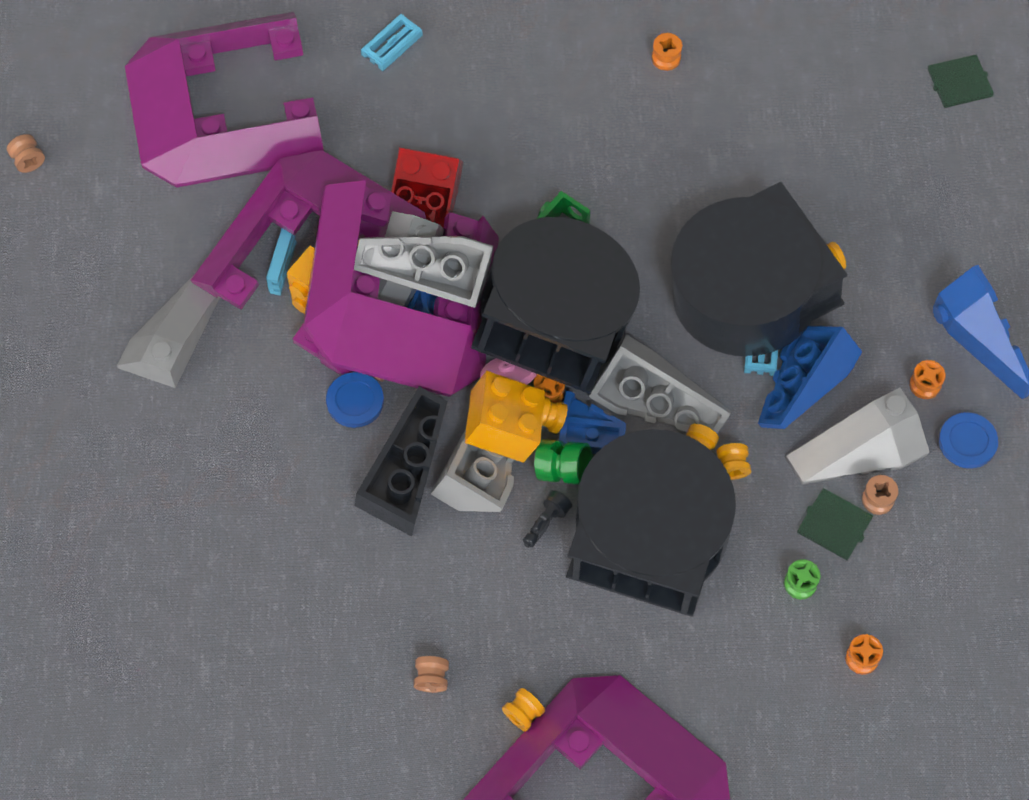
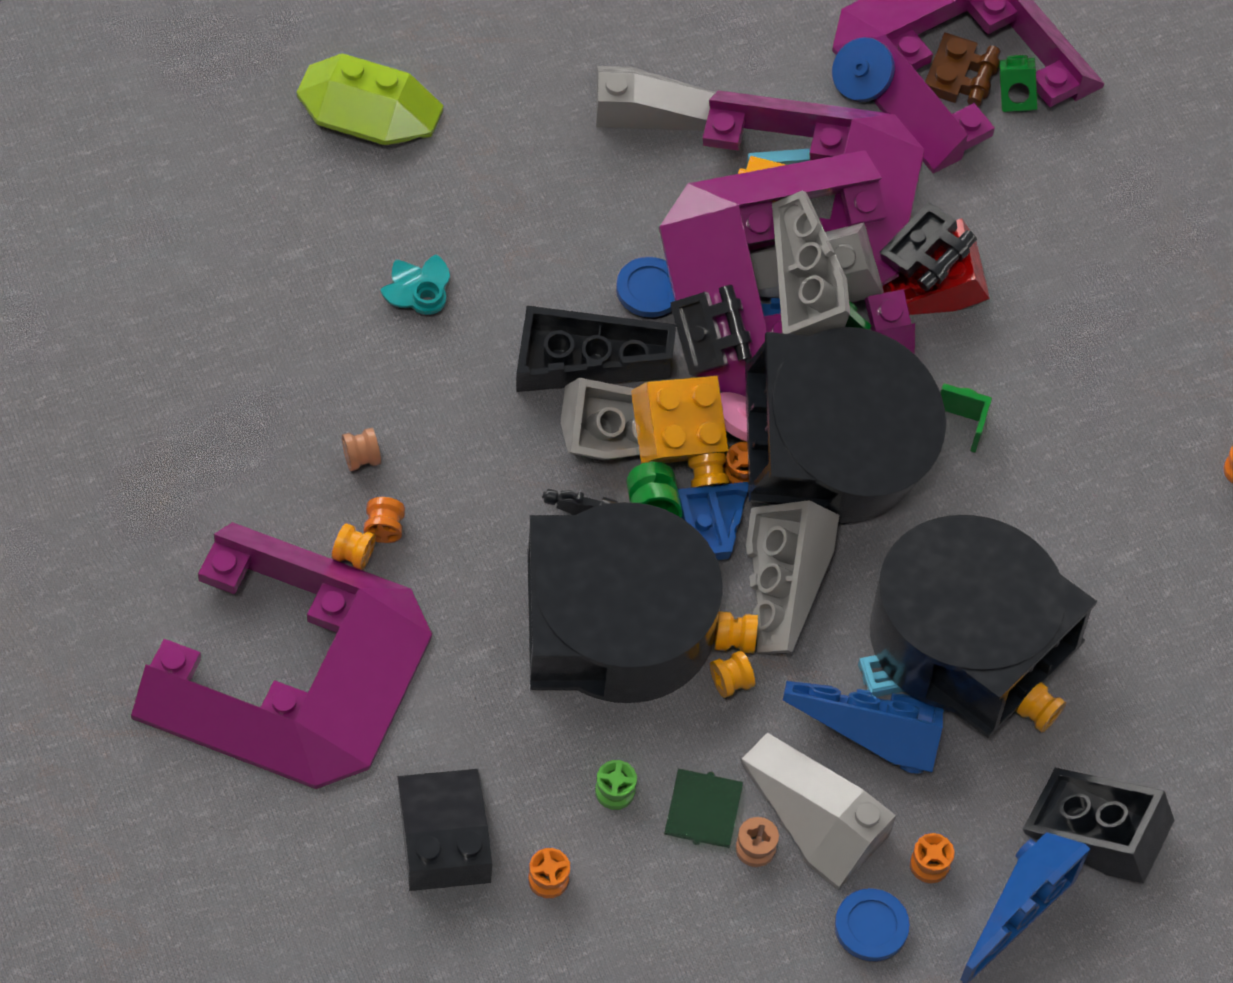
camera: 65 degrees right, 5 degrees down
(76, 561) = (368, 100): none -> lime wedge
(214, 168) = (863, 69): none -> blue piece
(236, 109) = (951, 65): none -> reddish brown plate
(264, 62) = (1018, 70): none -> green bracket
(277, 578) = (414, 284): none -> teal plate
(395, 45) = (1112, 192): medium azure tile -> none
(411, 182) = (920, 239): none -> black plate
(432, 371) = (700, 333): none -> black plate
(505, 677) = (385, 519): none -> orange wheel
(801, 720) = (444, 829): none -> black slope
(931, 257) = (1114, 818): none -> black slope

